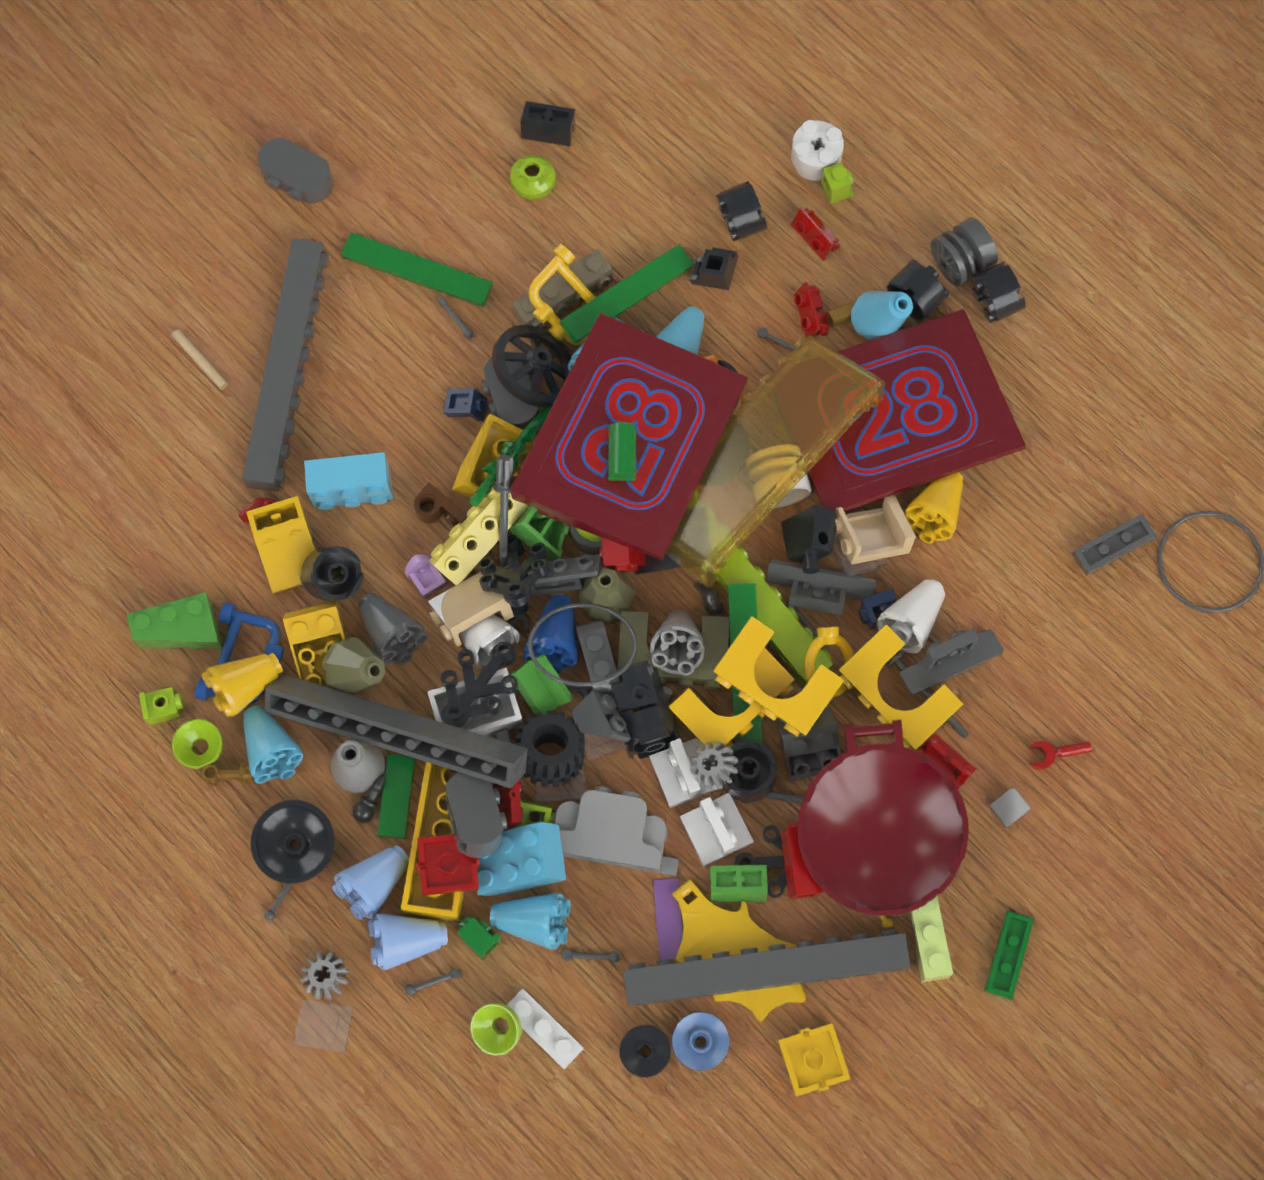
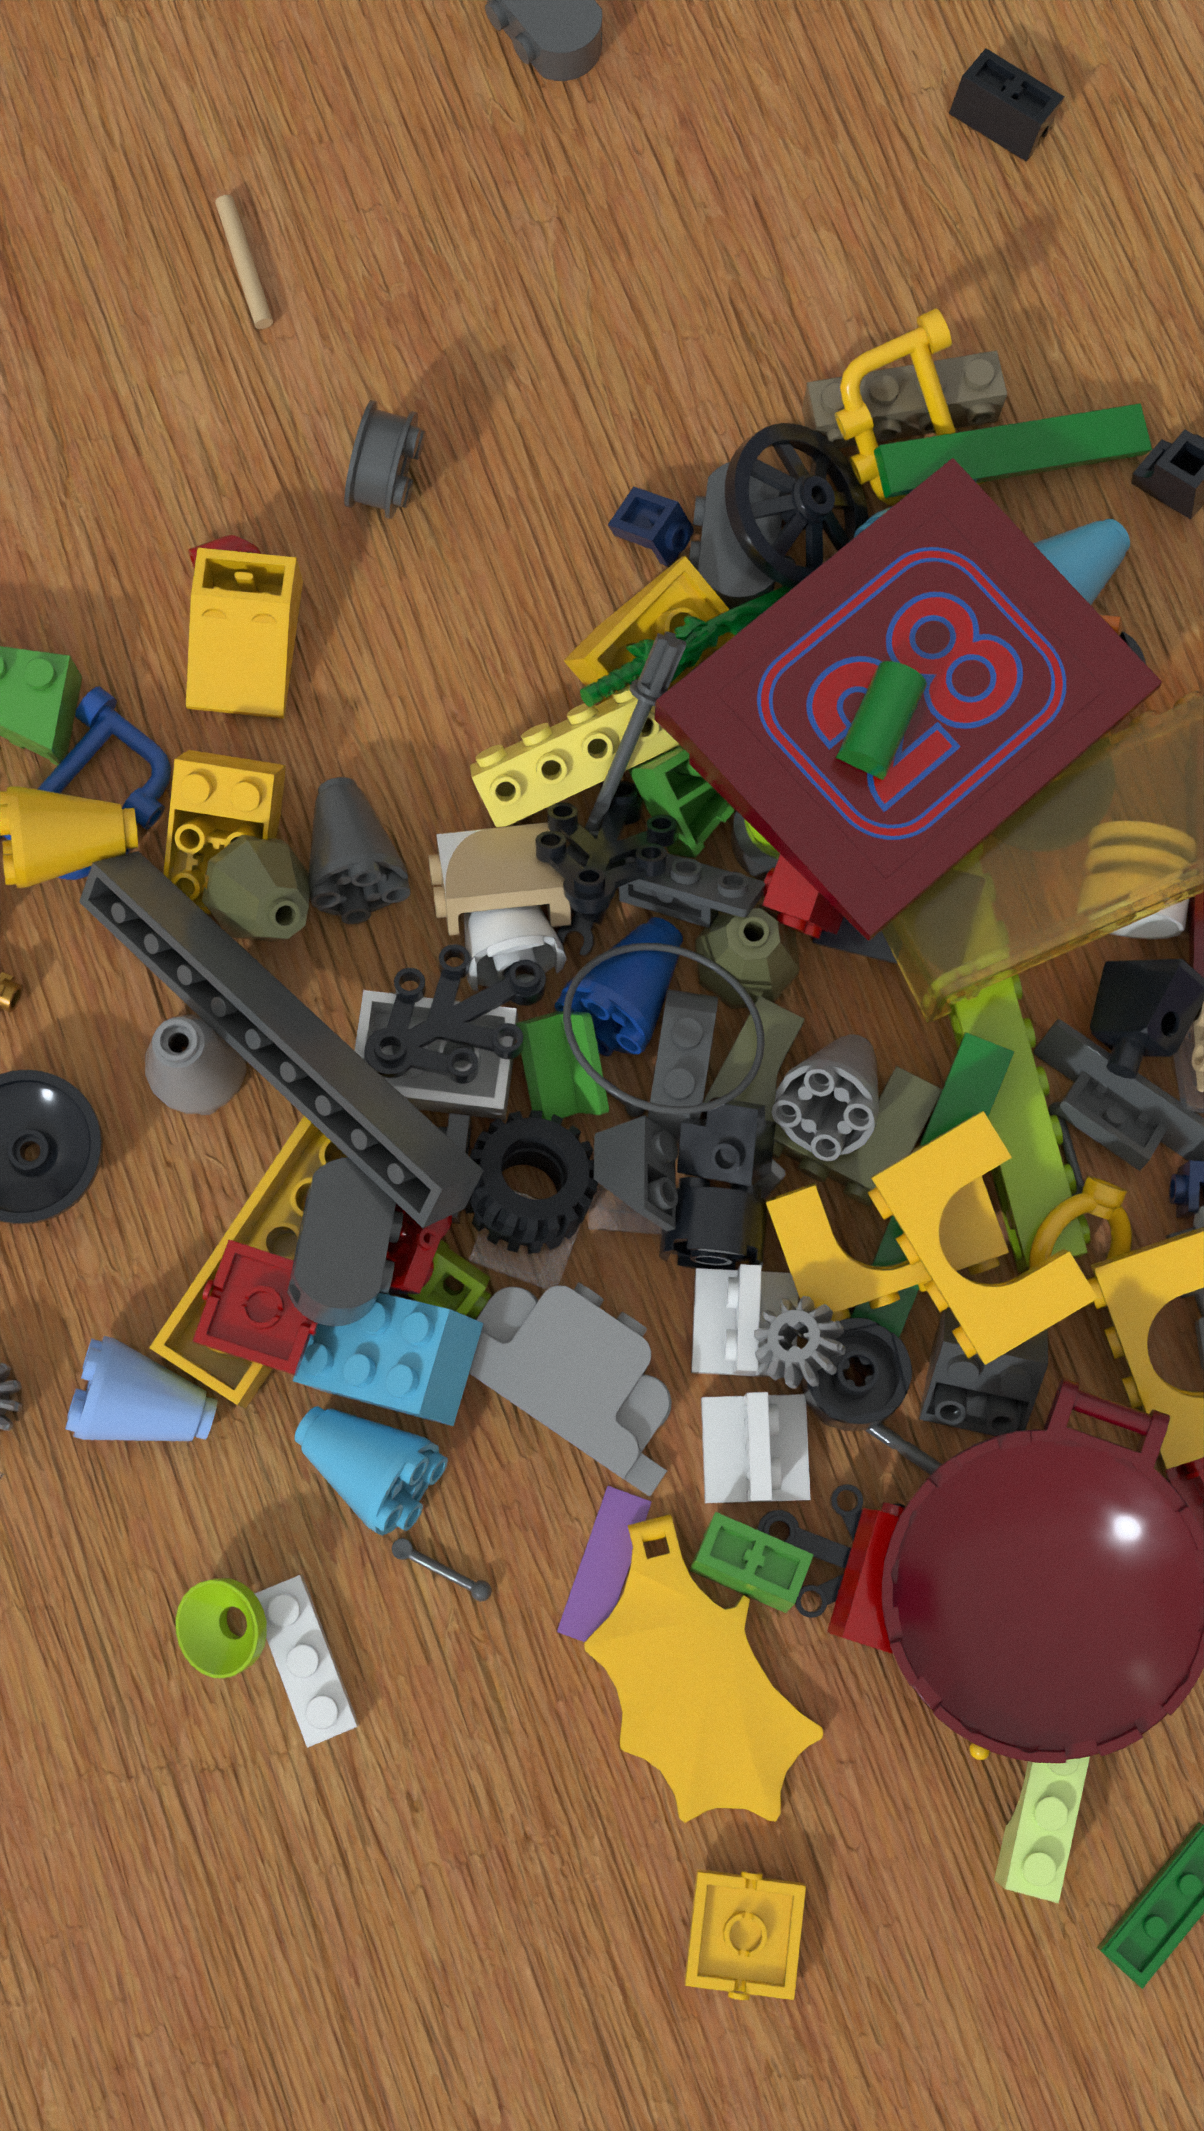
camera: 20 degrees right, 5 degrees up
(269, 747) = (59, 966): medium azure cone -> none
(285, 365) = (379, 330): dark grey brick -> none
(317, 429) = (383, 459): none -> dark grey wheel
(345, 568) = (323, 716): black brick -> none
(348, 481) = (394, 569): medium azure brick -> none
(364, 810) = (174, 1143): pearl dark grey bar -> none
(371, 881) = (127, 1273): light blue cone -> none
(396, 796) = (234, 1148): green tile -> none
(411, 989) = (113, 1488): dark grey hinge -> none
(417, 269) = (673, 262): green tile -> none
(424, 575) = (452, 787): lavender tile -> none
(442, 505) = (534, 680): reddish brown plate -> none
(468, 333) = (711, 405): dark grey hinge -> none
(478, 936) = (264, 1450): green brick -> none
(532, 186) = (939, 203): lime piece -> none
(654, 1040) = (433, 1792): black piece -> none
(704, 1026) = (556, 1839): medium blue dish -> none
(710, 599) = (922, 1041): clear smoke arm -> none
(766, 969) = (735, 1740): dark grey brick -> none

